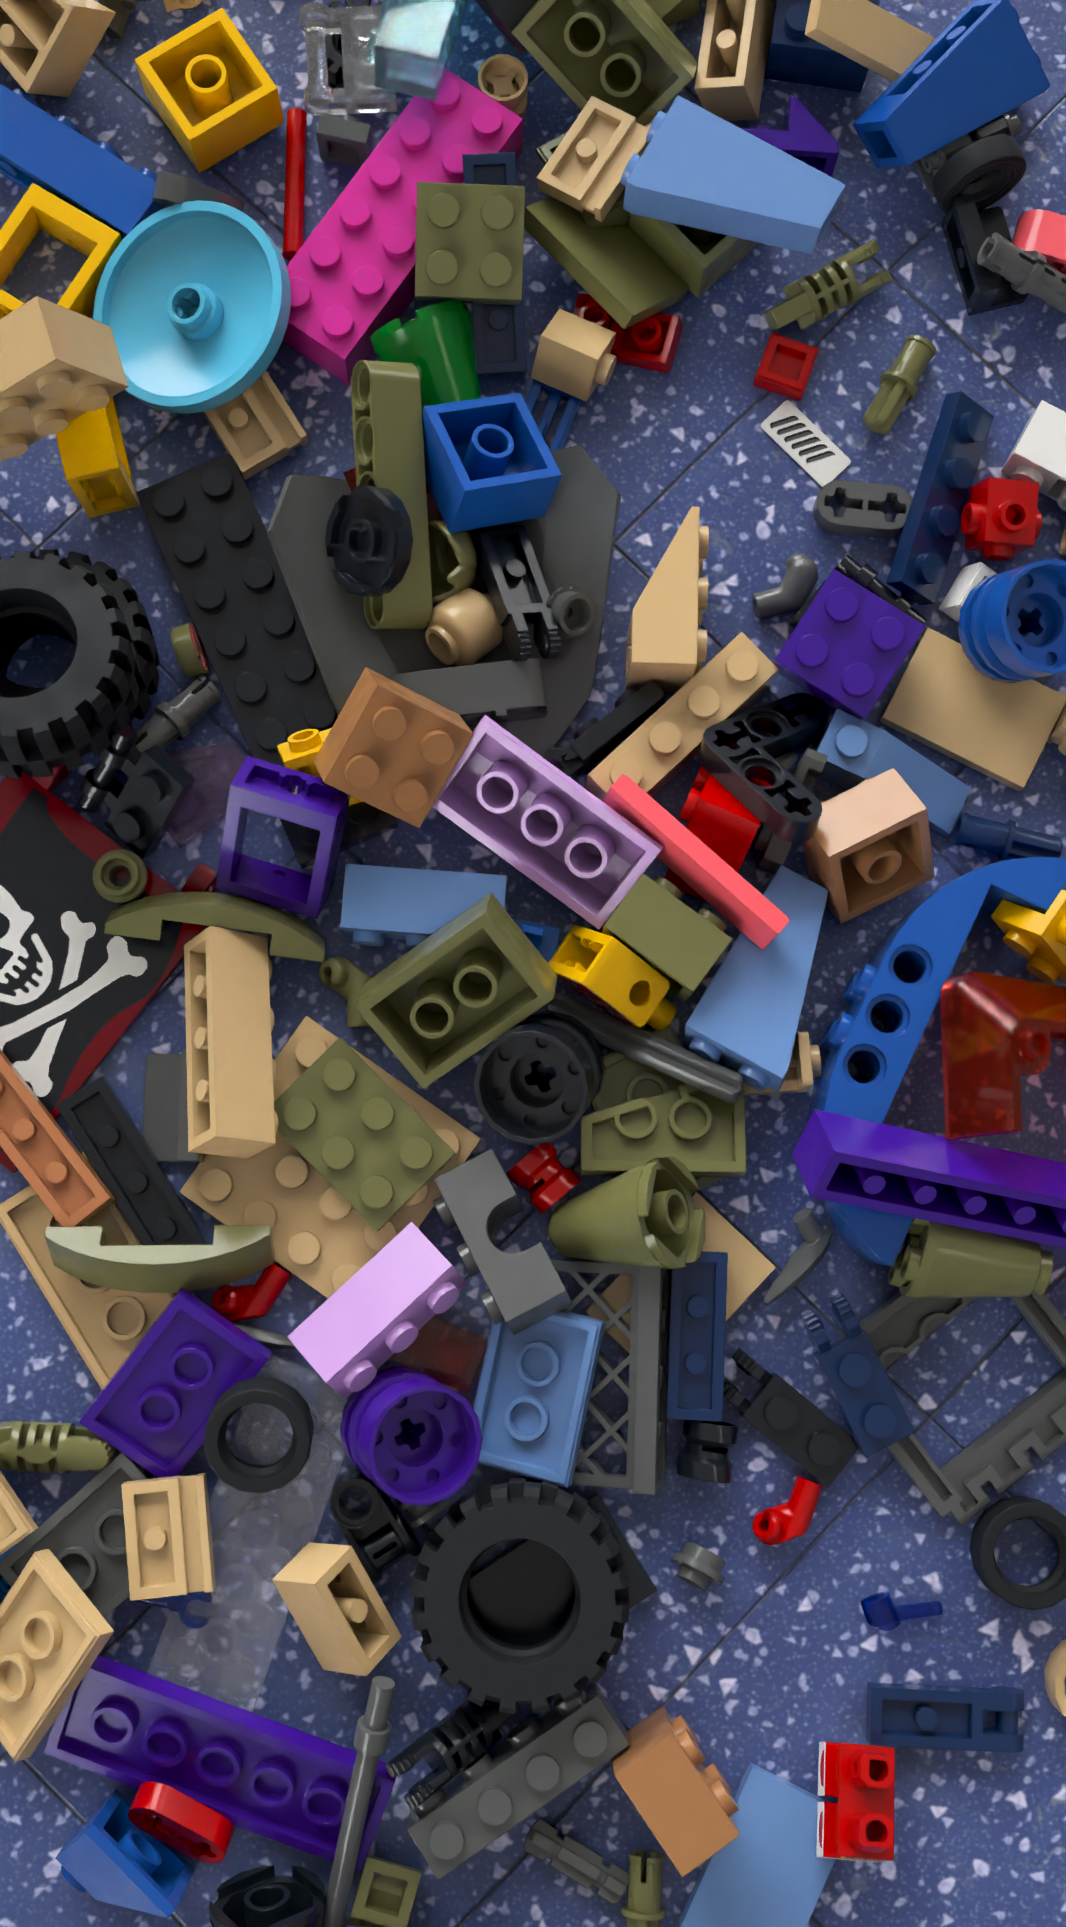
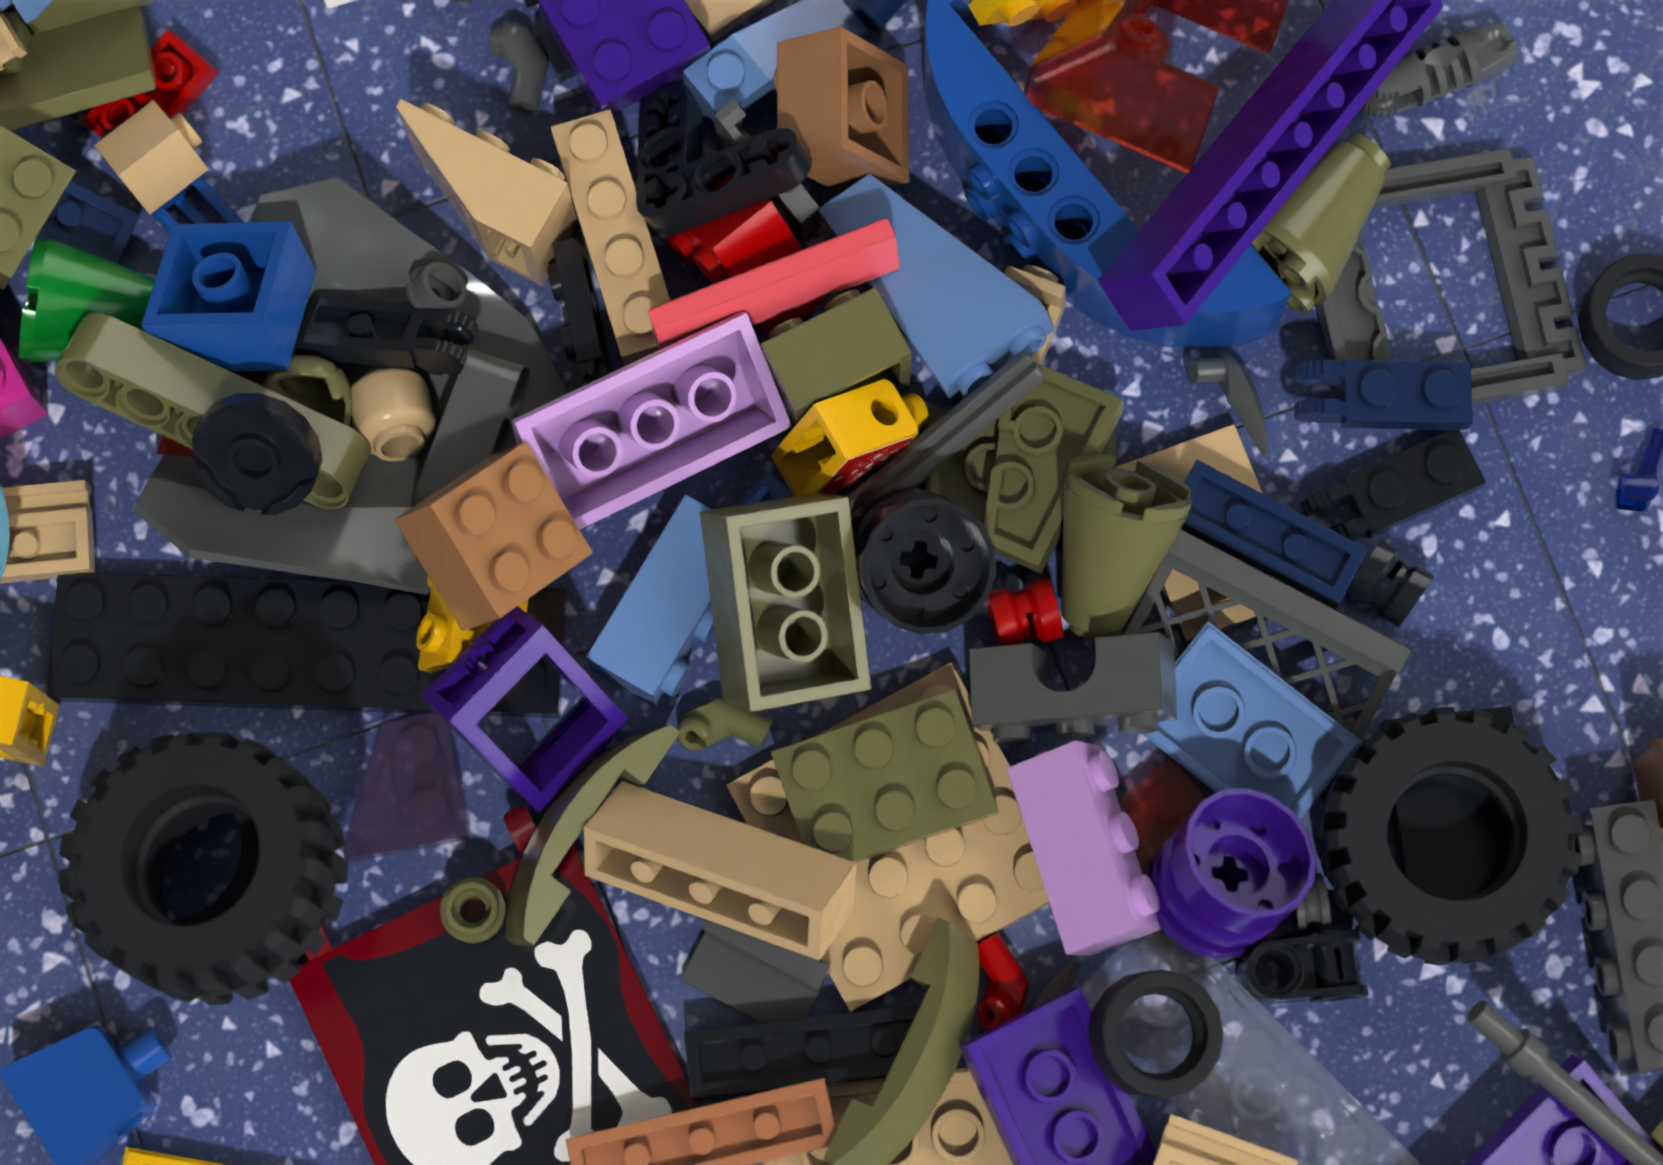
camera: 55 degrees left, 5 degrees down
(147, 801) = (407, 839): black plate -> none
(176, 717) = (327, 768): dark grey pin -> none
(189, 650) = (257, 720): olive tile -> none
(337, 1608) = (1376, 1038): tan brick -> none
(450, 1747) = (1573, 986): black hinge -> none
(699, 1566) = (1505, 650): dark grey plate -> none
(789, 1518) = (1500, 535): red arm -> none

